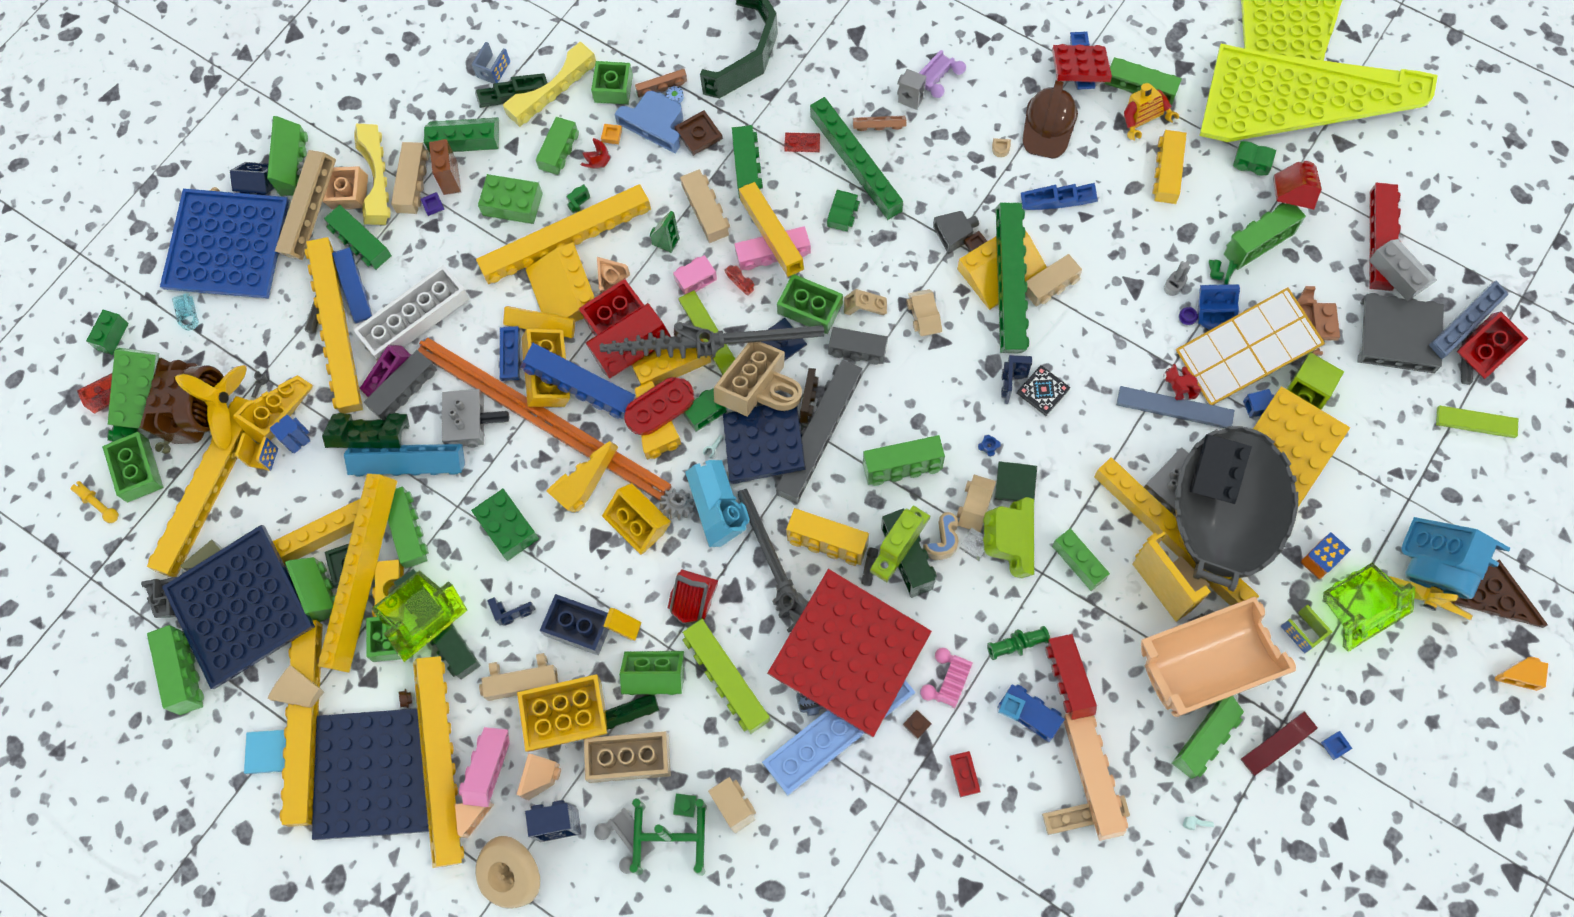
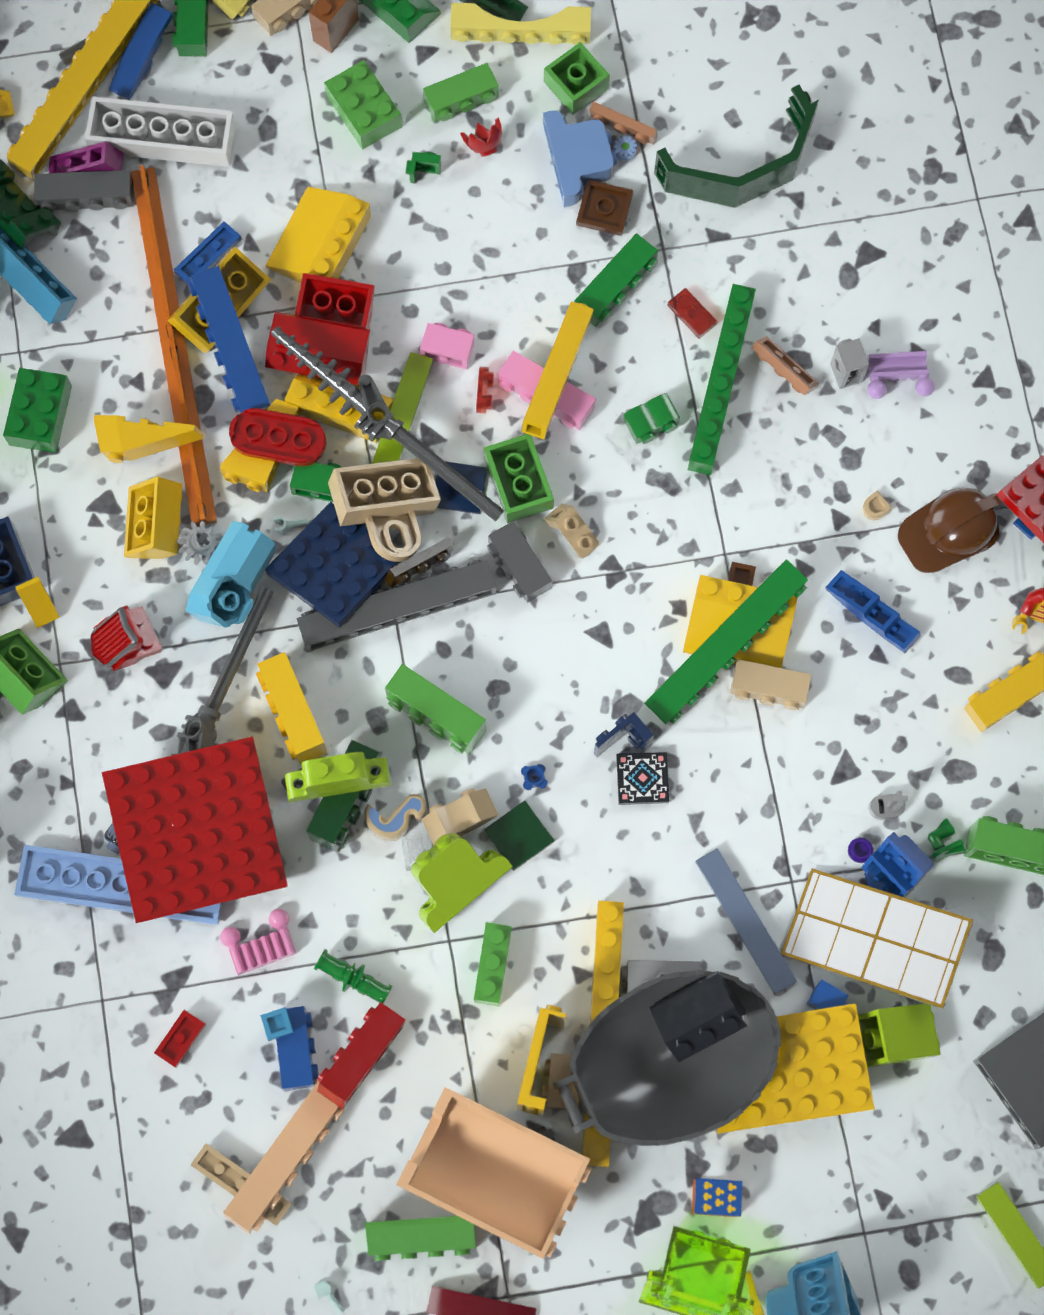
camera: 40 degrees right, 5 degrees up
(432, 204) = (291, 40): dark purple plate -> none
(465, 417) = (106, 277): light grey piece -> none
(537, 320) = (263, 250): yellow tile -> none
(571, 229) = (375, 187): yellow brick -> none
(610, 273) = (370, 268): light nougat slope -> none
(611, 134) = (523, 129): light orange plate -> none
(666, 233) = (462, 279): green slope -> none
(704, 205) = (530, 286): tan brick -> none
(726, 676) = (75, 739): lime brick -> none
(917, 724) = (189, 953): reddish brown plate -> none
(924, 312) = (615, 593): tan brick -> none
(954, 229) = (735, 542): dark grey torso -> none
(1182, 384) = (775, 906): red animal -> none
(1314, 622) = (632, 1263): lime piece -> none
(1322, 316) = (979, 980): nougat plate -> none

